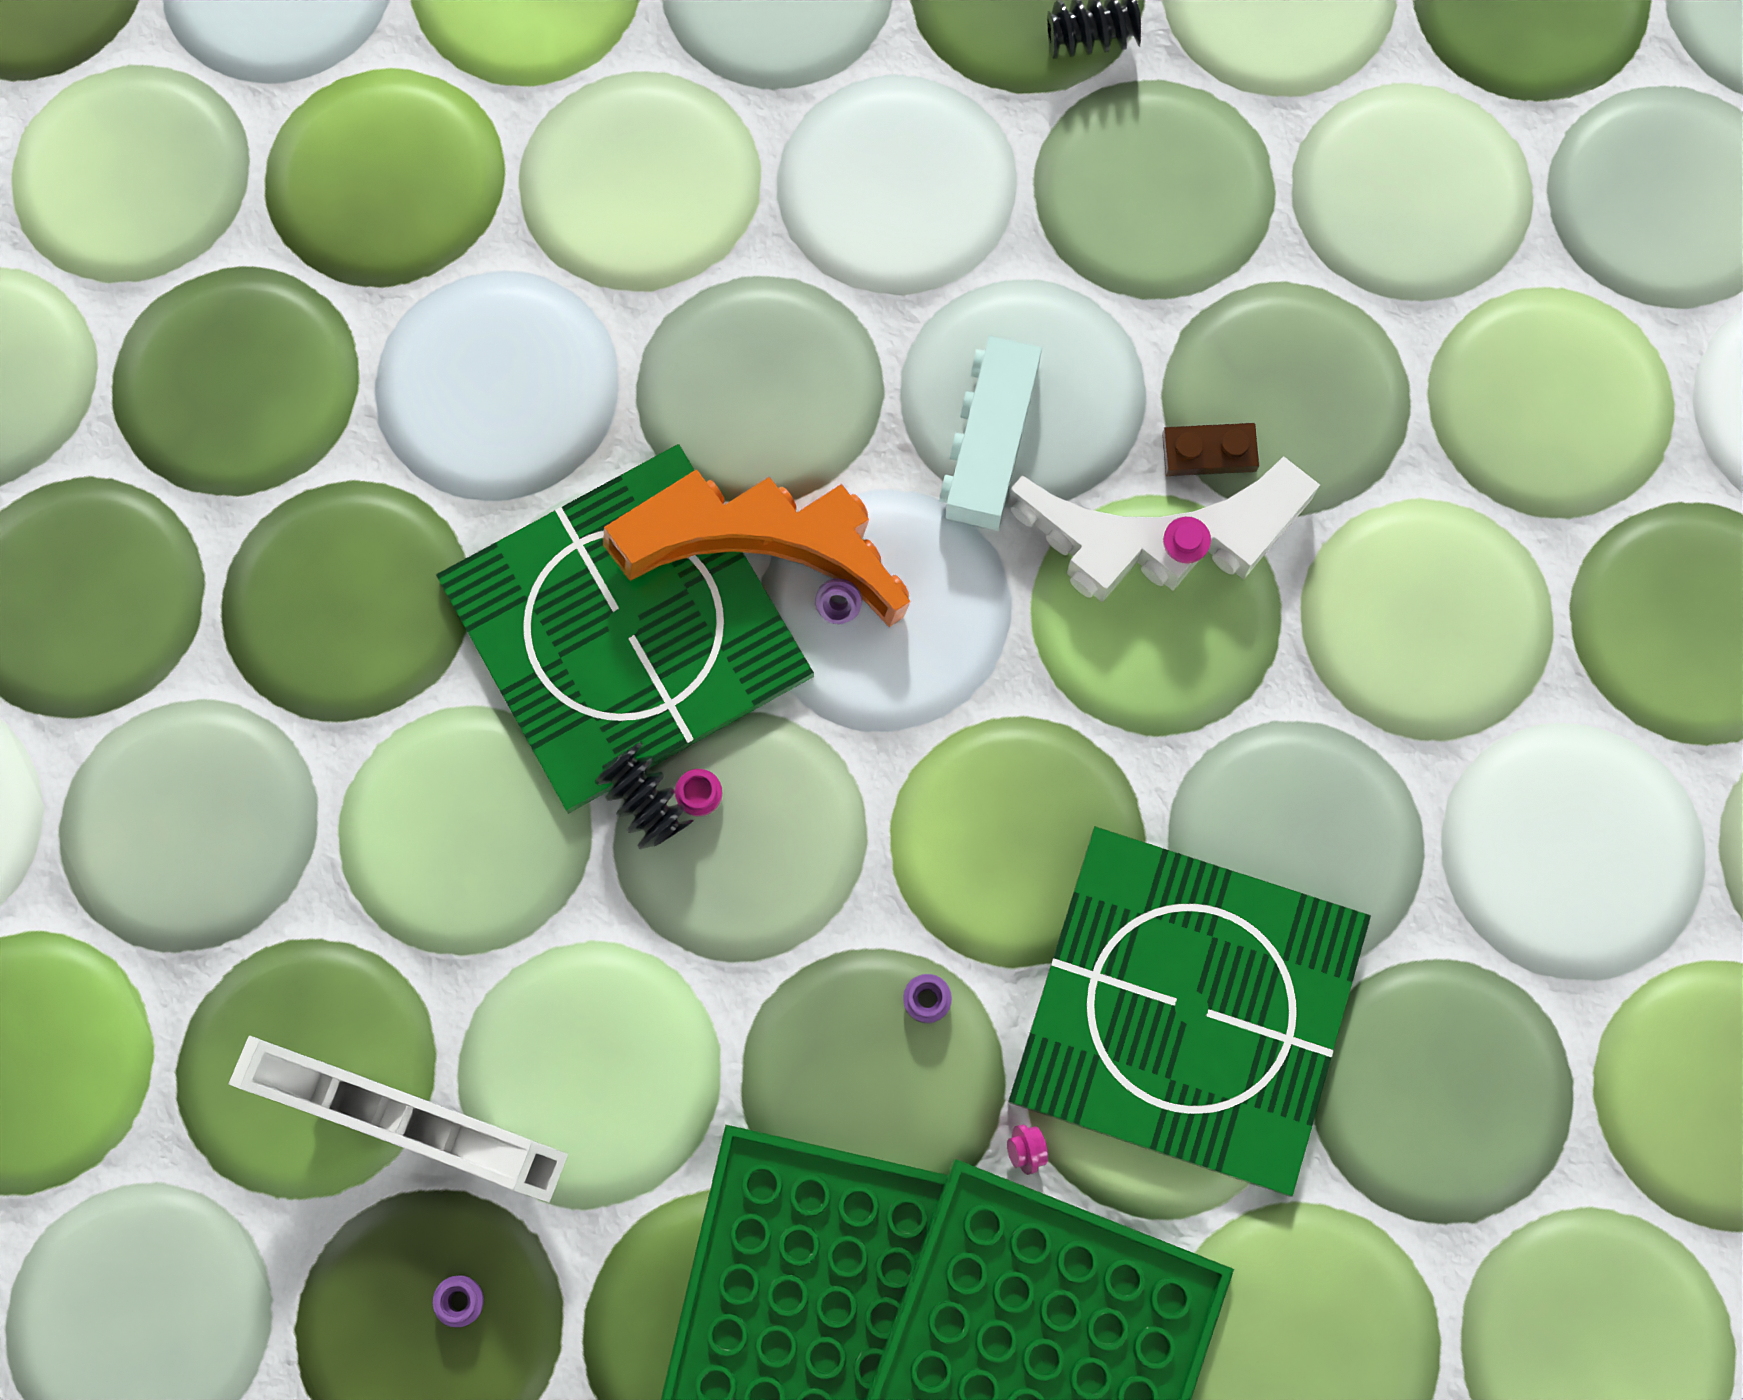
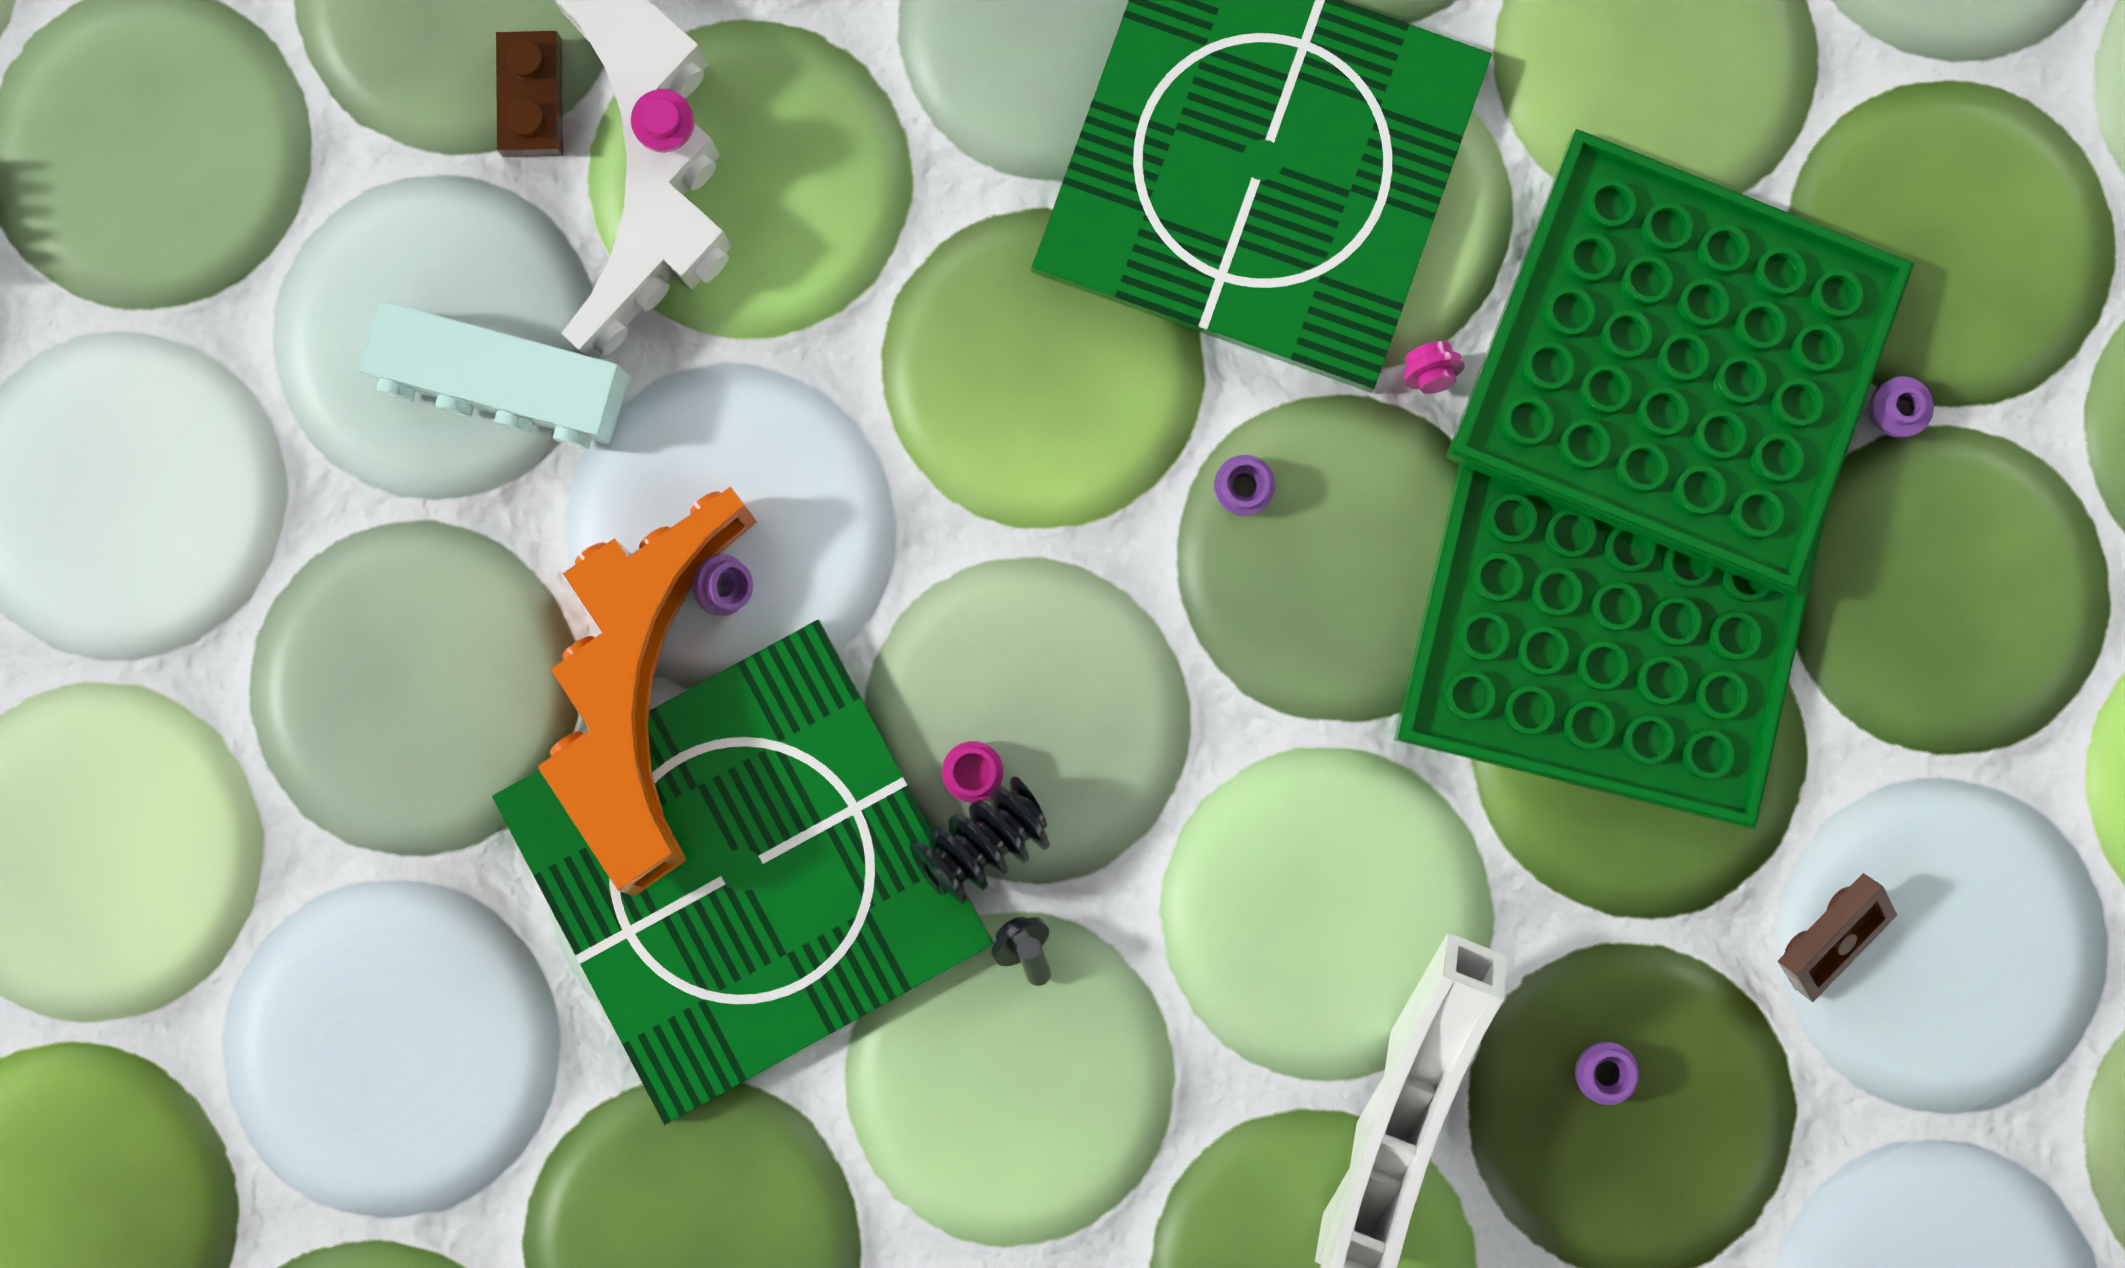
camera: 95 degrees left, 10 degrees up
(566, 831) = (1022, 942): none -> black plate

